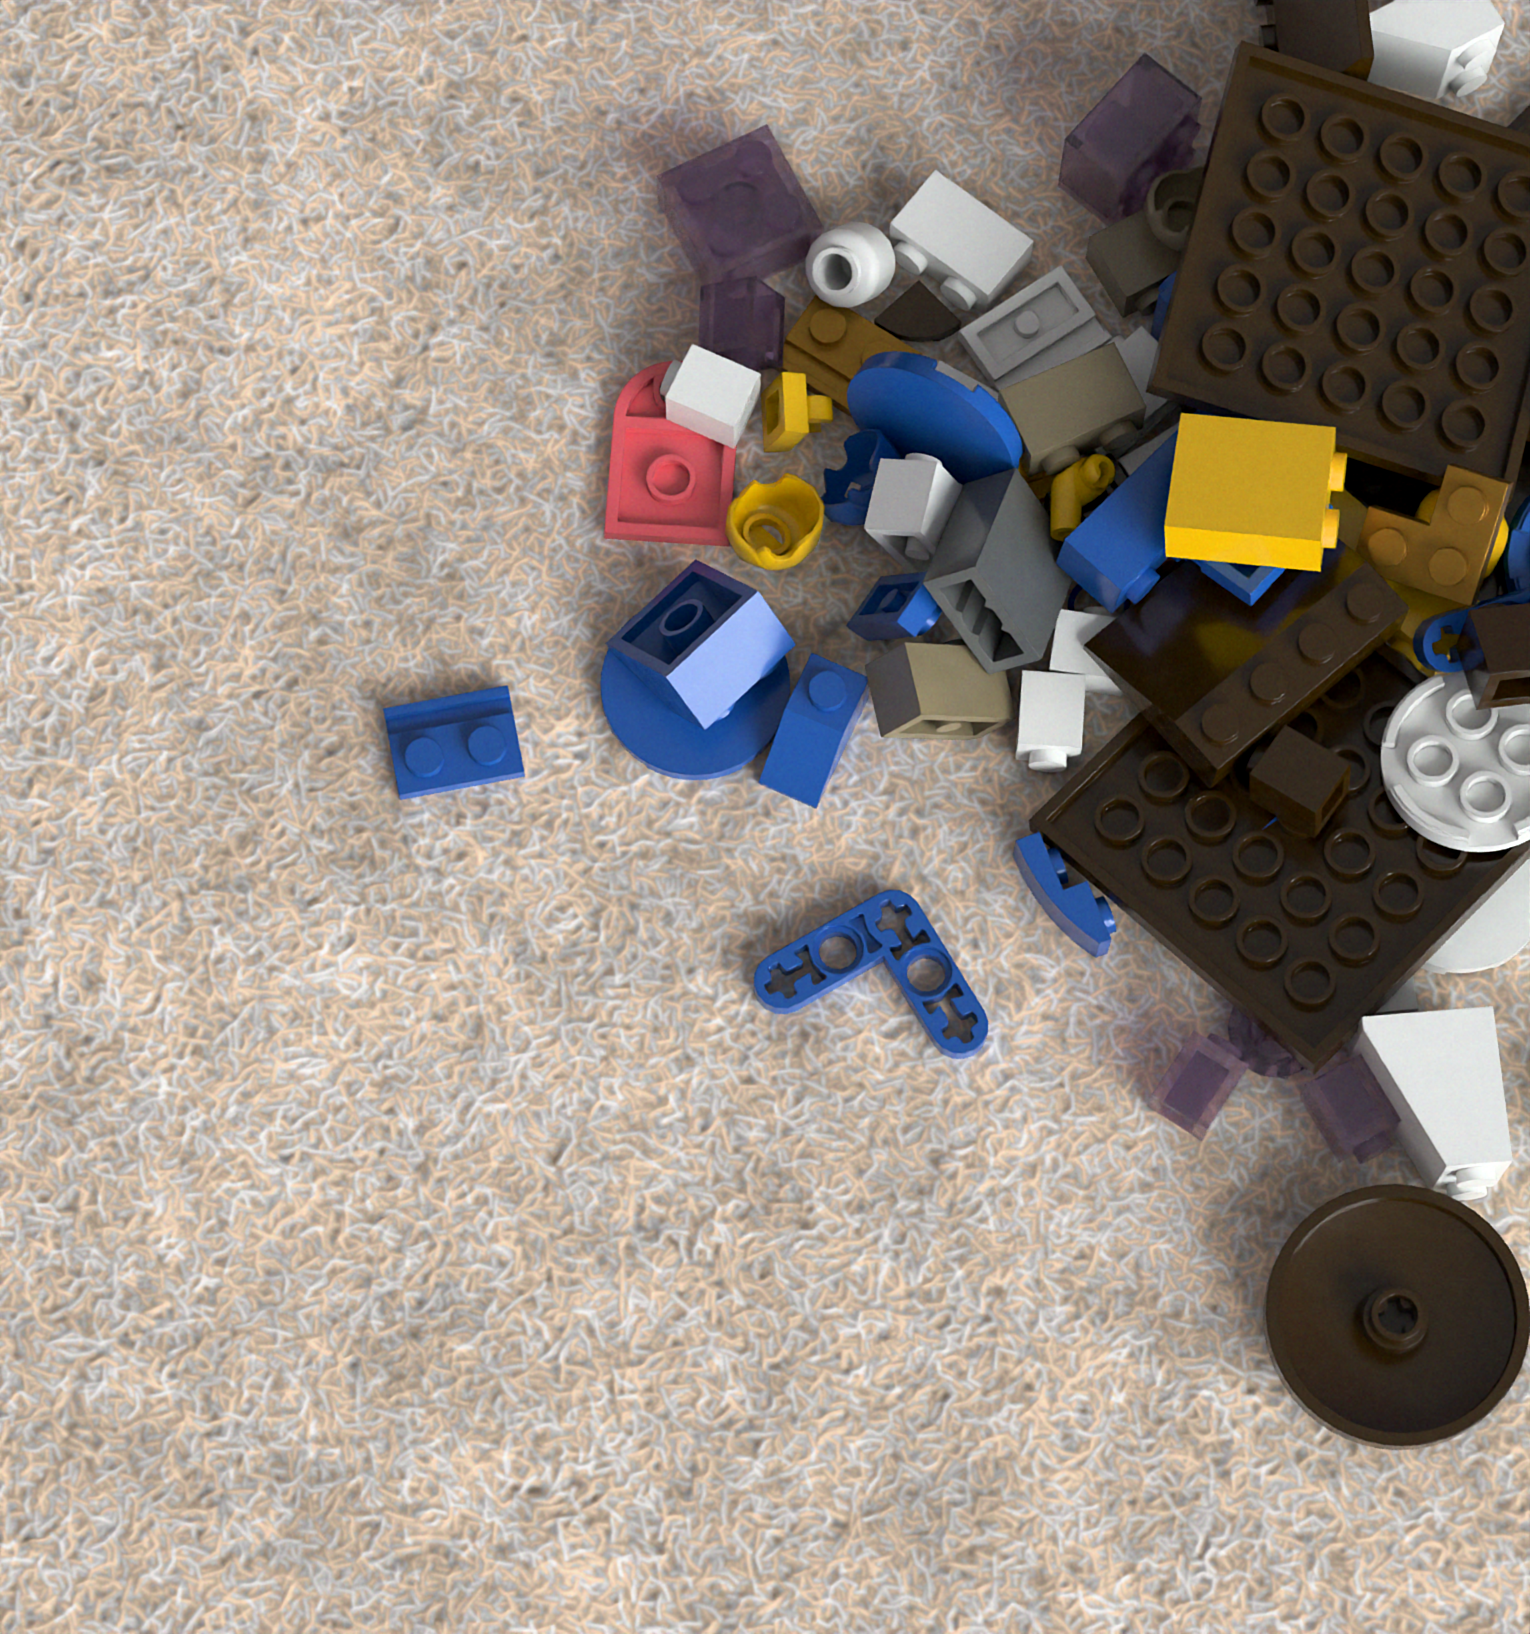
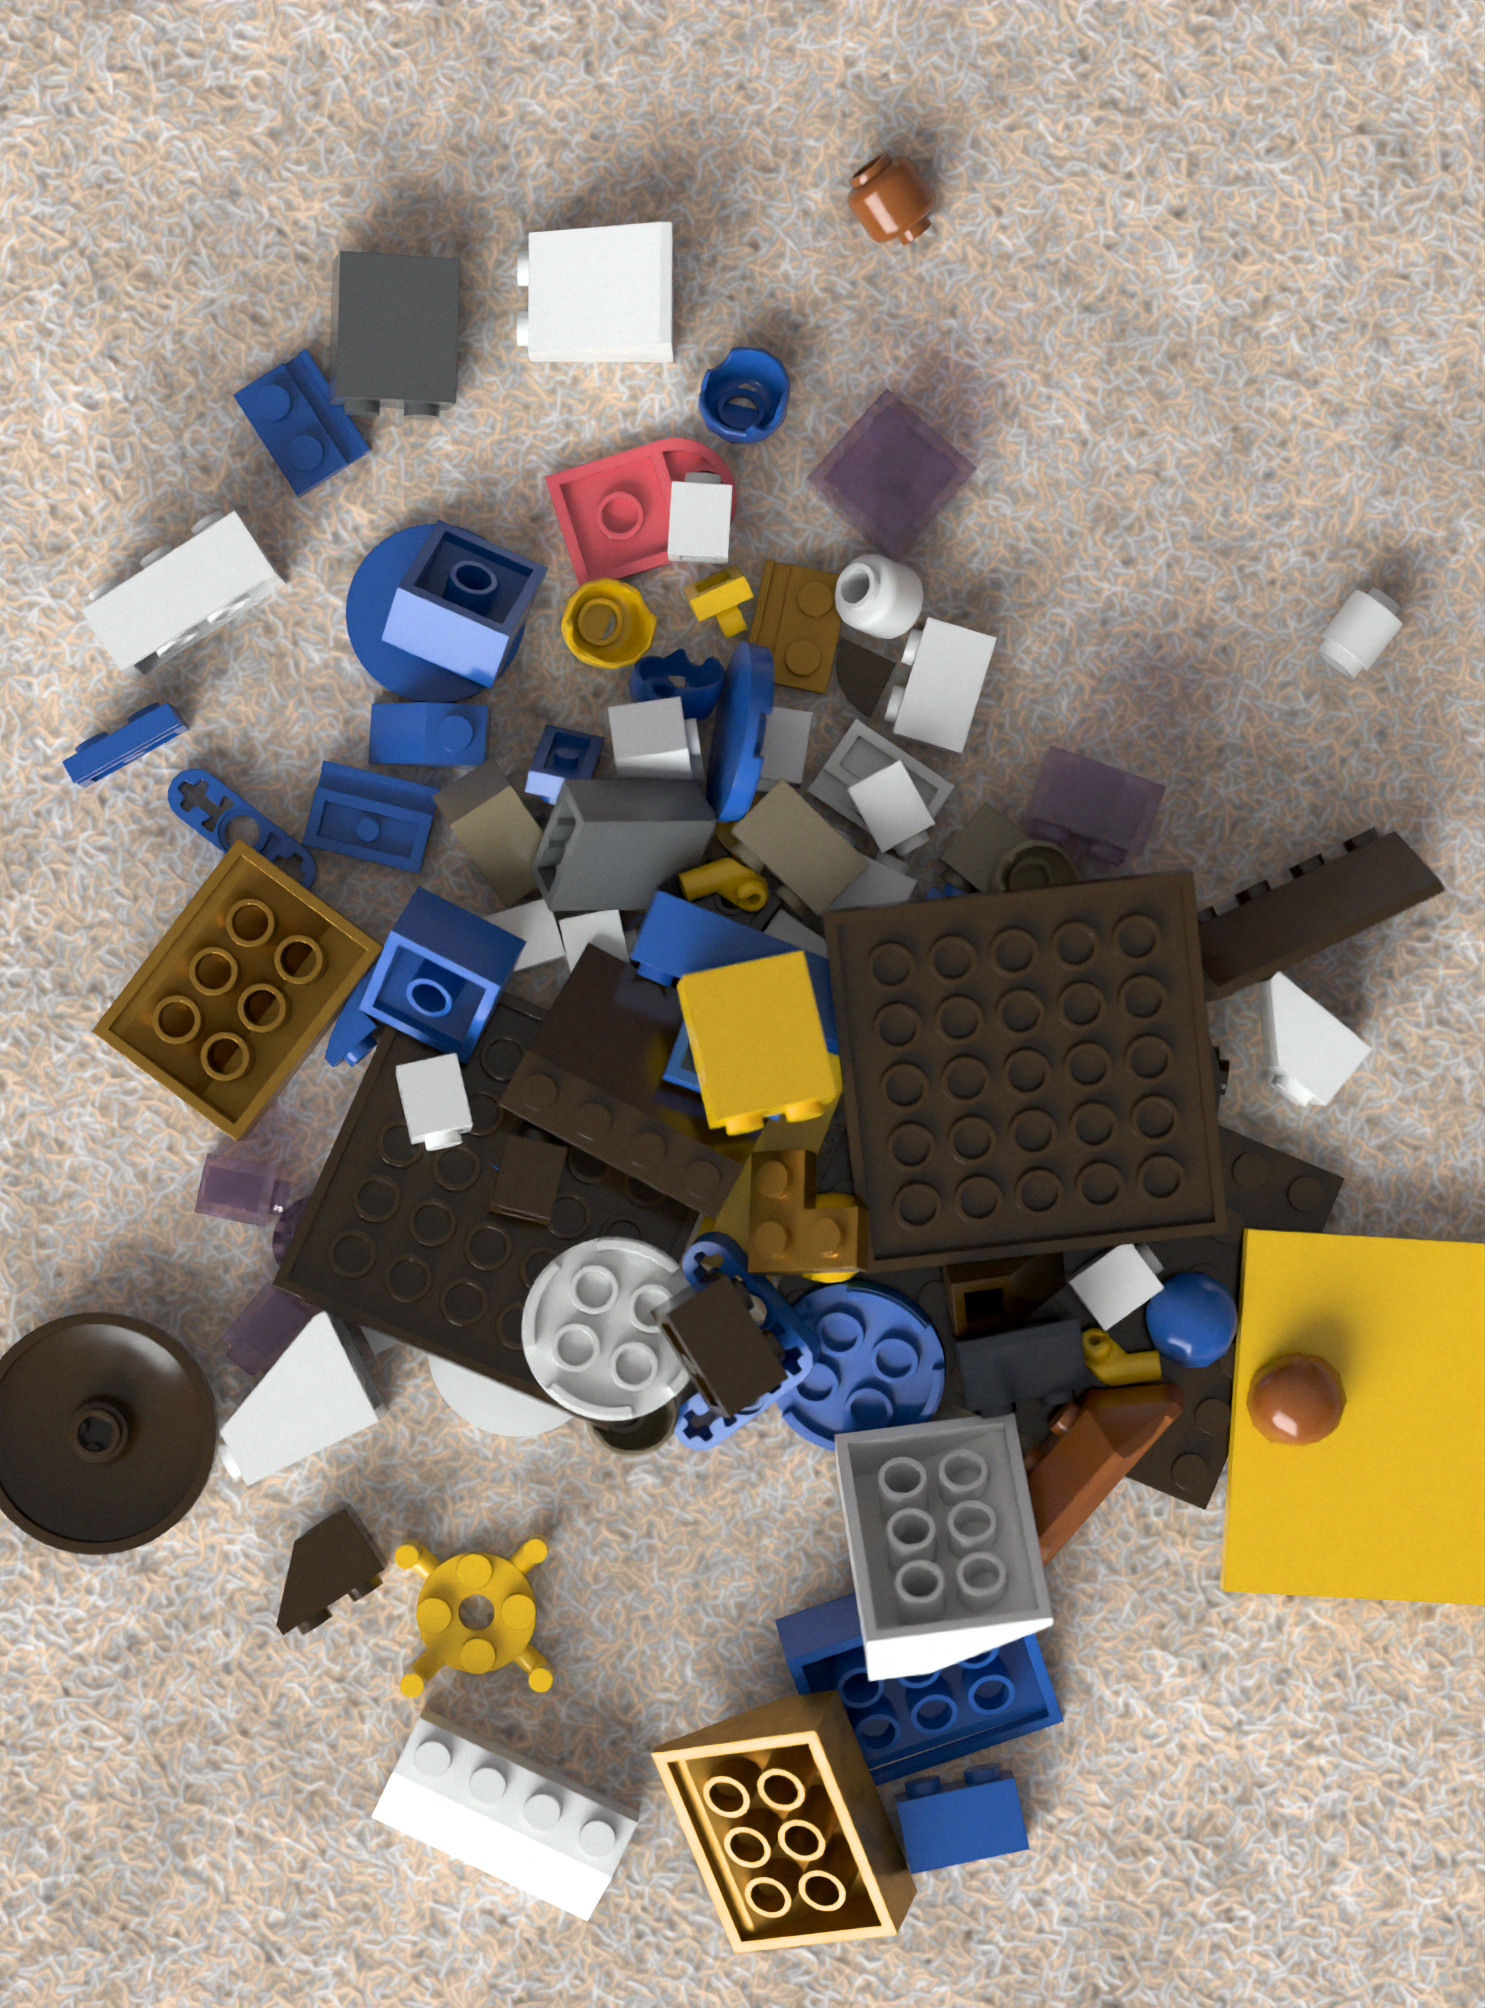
camera: 70 degrees right, 15 degrees up
(406, 614) = (394, 334): none -> dark grey brick
(453, 403) = (599, 294): none -> white slope
(473, 119) = (891, 199): none -> dark orange head
(580, 902) = (182, 594): none -> white brick
(616, 296) = (720, 386): none -> blue hair
(699, 998) = (108, 753): none -> blue plate
(743, 322) = (779, 522): clear purple brick -> none
(872, 820) = (371, 817): none -> blue plate
(1002, 997) = (239, 990): none -> pearl gold slope
(1062, 319) = (893, 809): none -> white brick
(1064, 788) = (441, 974): none -> blue slope
(1187, 842) = (434, 1101): none -> white brick

